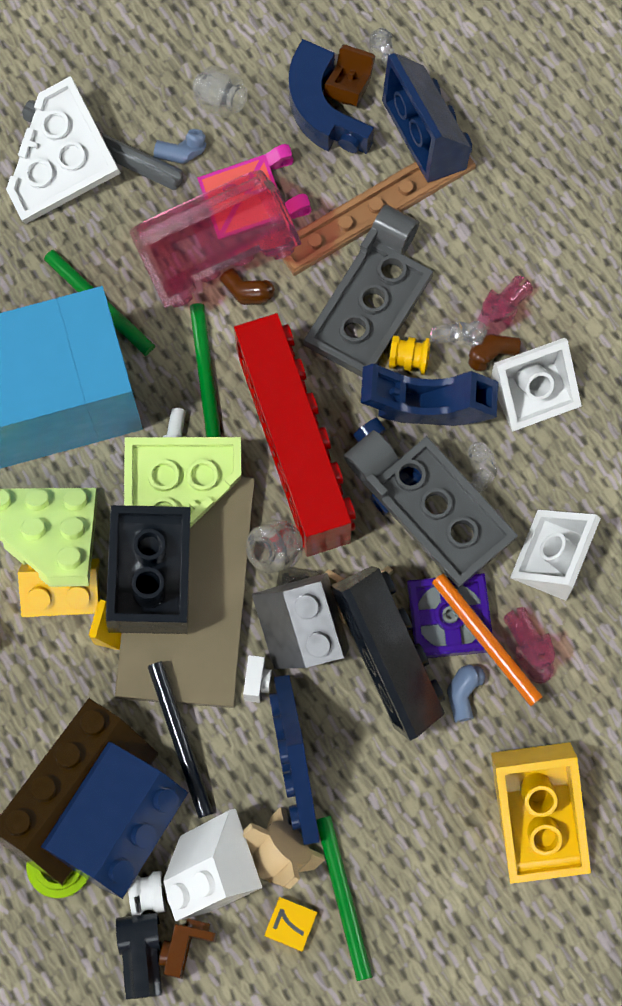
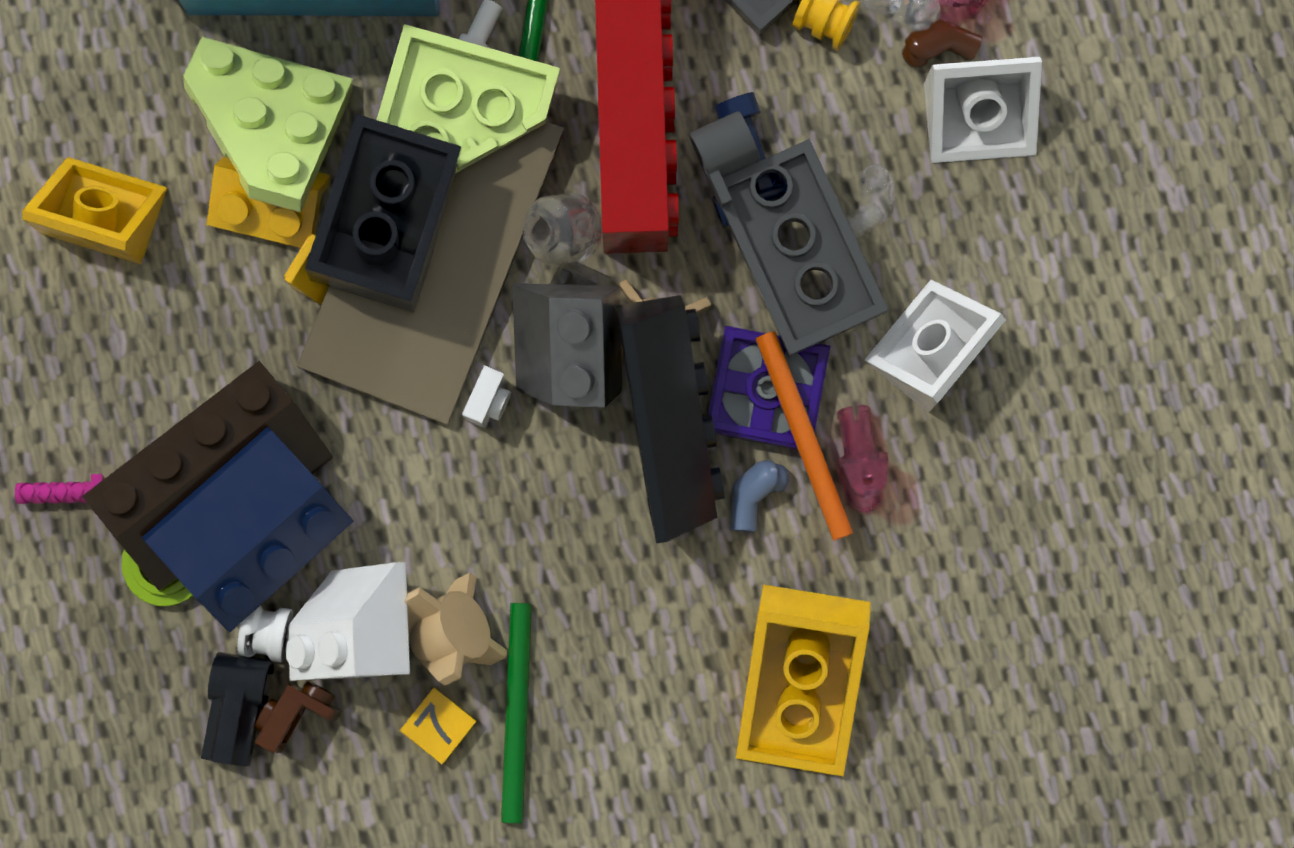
camera: 15 degrees right, 10 degrees up
(180, 739) = (365, 447): black bar -> none
(293, 759) = (501, 516): dark blue plate -> none
(444, 401) = (845, 94): dark blue arch -> none

